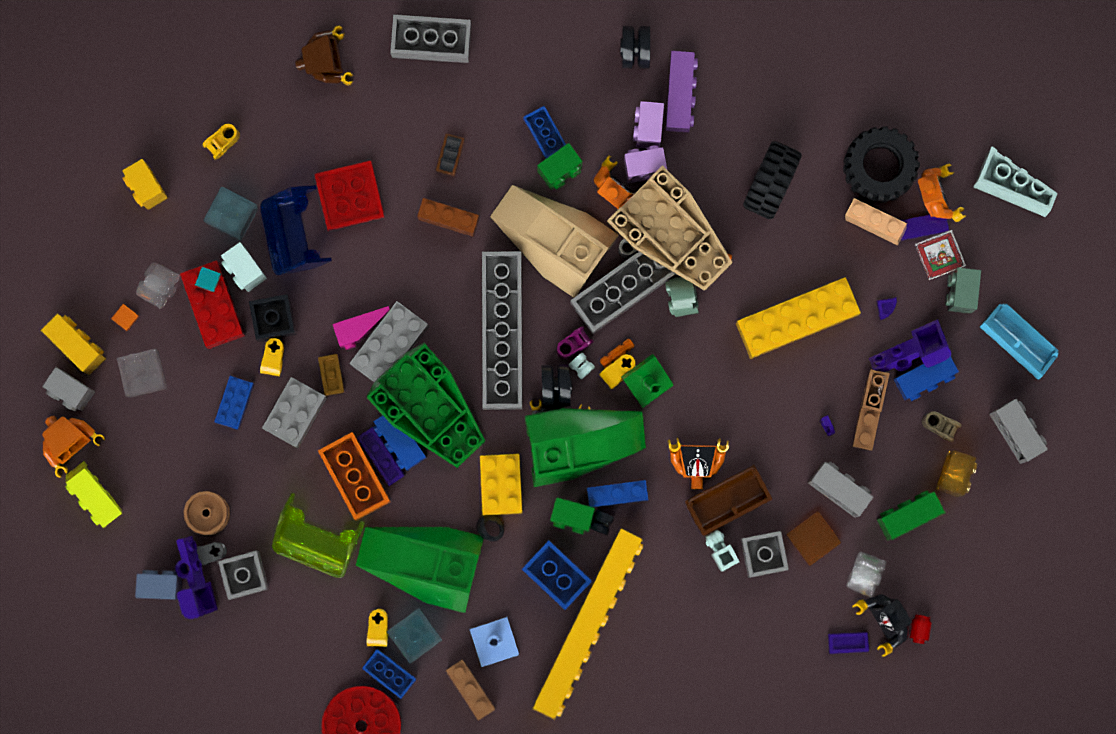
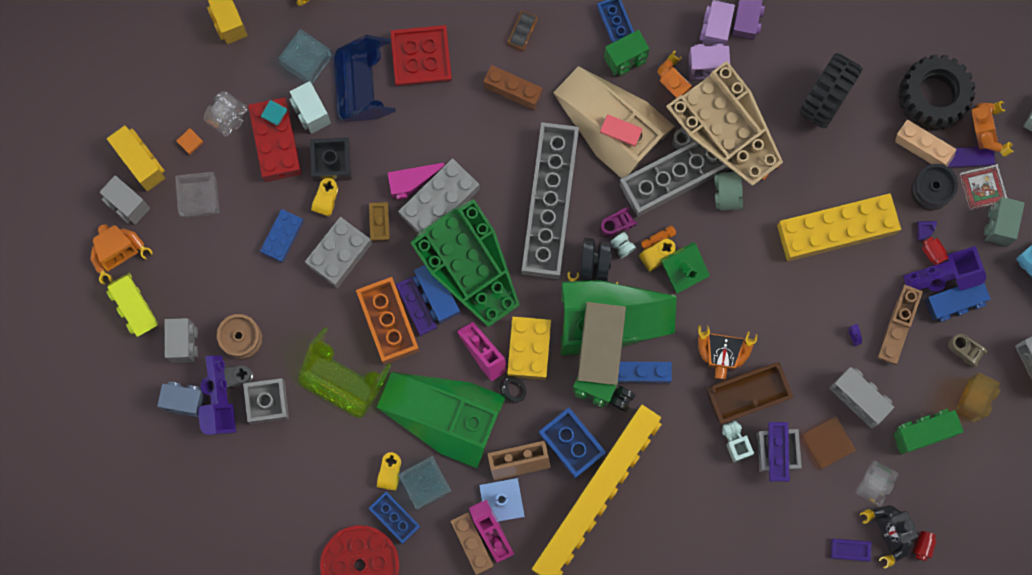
camera: 10 degrees right, 5 degrees down
(148, 525) = (180, 340): none -> light grey brick
(454, 494) = (483, 351): none -> dark pink slope
(487, 674) = (491, 530): none -> dark pink slope
(506, 599) = (519, 460): none -> medium nougat brick
(564, 250) = (621, 130): none -> coral tile
(572, 474) = (601, 343): none -> dark tan tile
(763, 557) = (778, 451): none -> dark purple tile
(897, 329) = (935, 251): none -> red brick
(899, 257) = (945, 187): none -> black wheel

